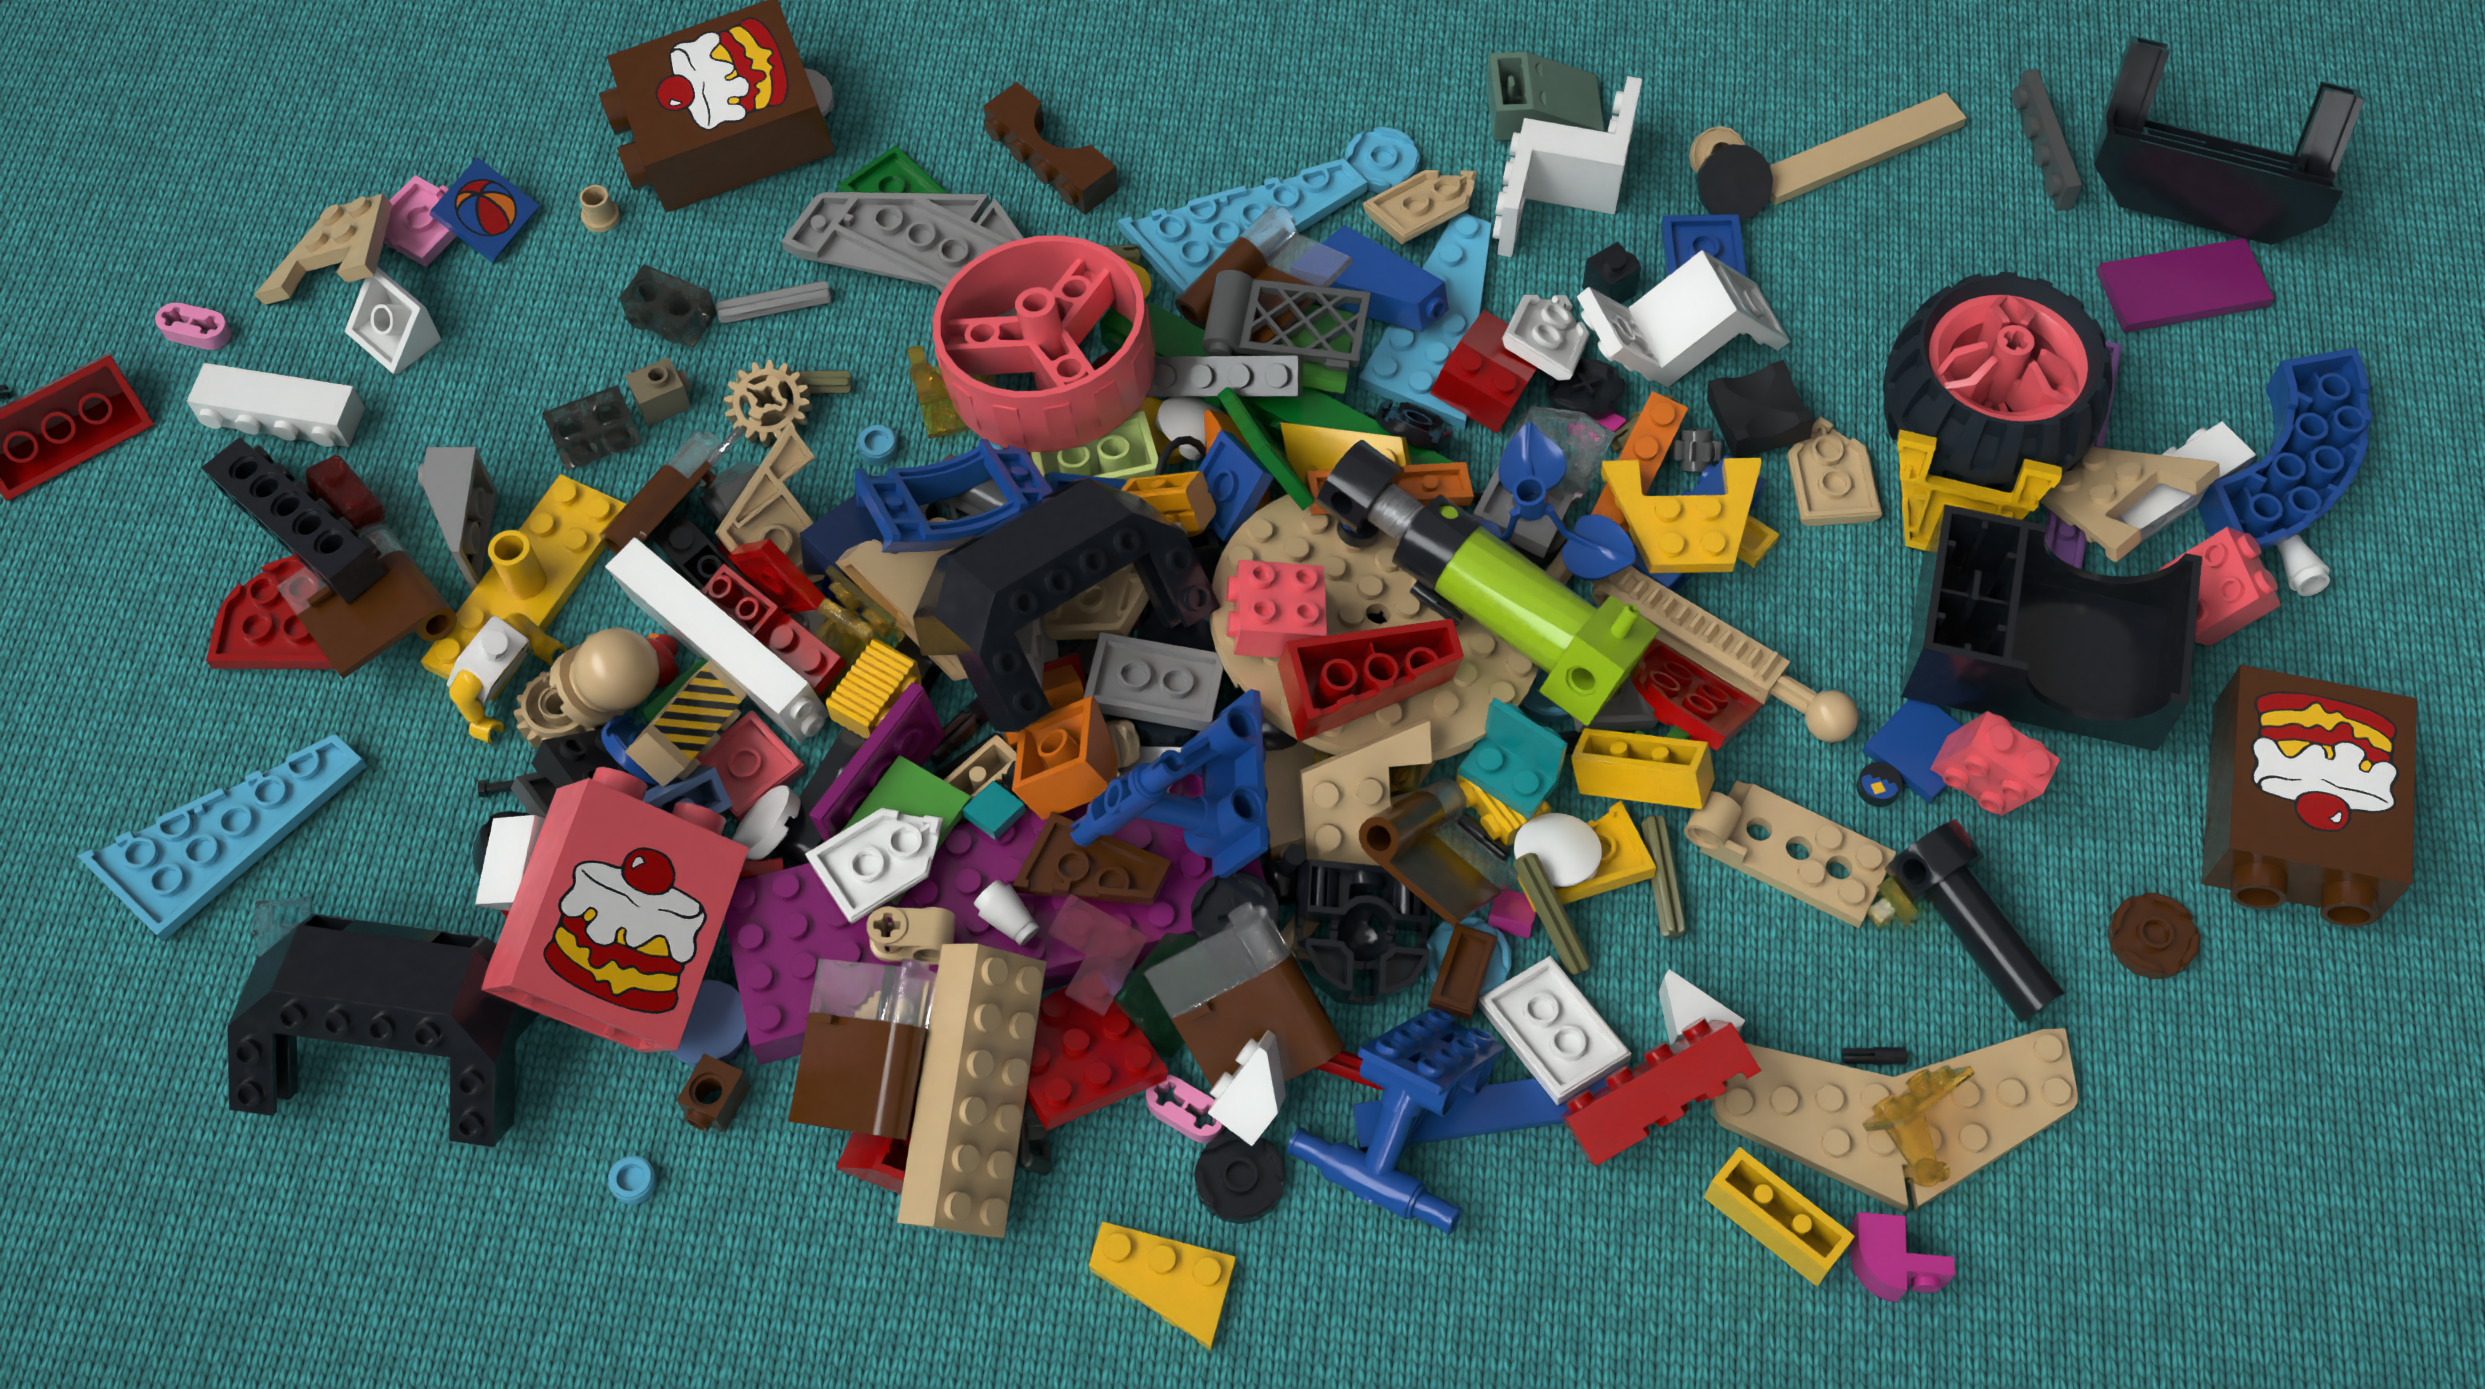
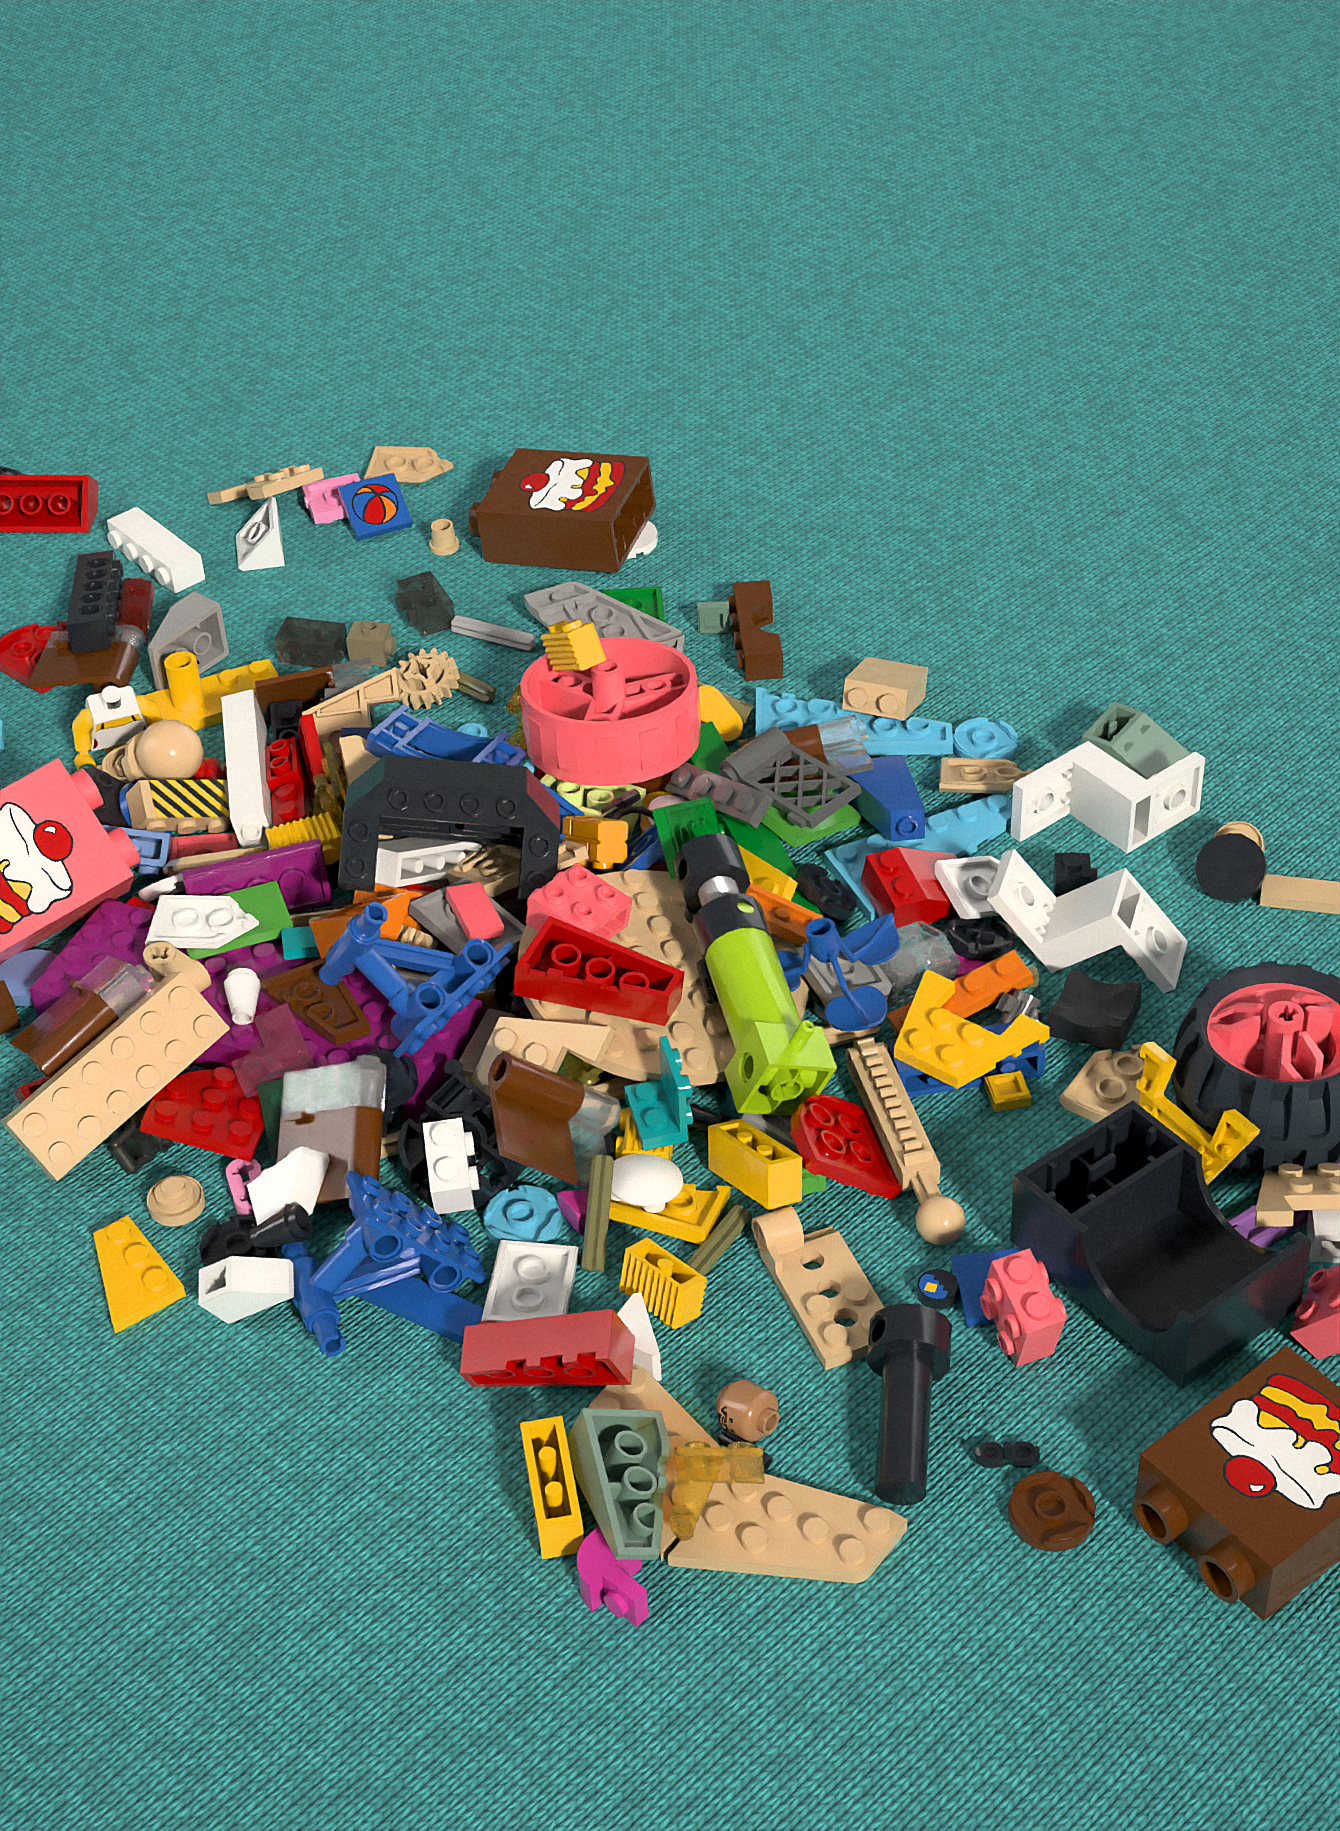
camera: 40 degrees right, 20 degrees down
(191, 330) = (159, 494): bright pink beam -> none
(451, 133) = (408, 464): none -> tan tile
(793, 769) = (186, 863): none -> tan tile
(981, 299) = (572, 646): none -> yellow brick
(992, 156) = (713, 617): none -> sand green tile
(1133, 1172) = (176, 1200): none -> tan plate
(1150, 446) = (622, 802): none -> black pin
(1157, 669) = (474, 911): none -> coral tile
(1251, 153) = (885, 688): none -> tan brick
(1286, 1135) = (283, 1228): none -> black cone
(1315, 1218) = (244, 1286): none -> white slope
(1401, 964) = (448, 1165): none -> white brick
(1463, 971) = (505, 1216): reddish brown tile -> none
(1673, 942) = (665, 1282): none -> yellow brick
(1715, 234) = (1176, 895): blue plate -> none
(1839, 1171) = (622, 1471): none -> sand green wedge
(1852, 1018) = (747, 1410): none -> medium nougat head
(1892, 906) = (852, 1362): clear yellow tile -> none
(2082, 901) = (1019, 1455): none -> black piece

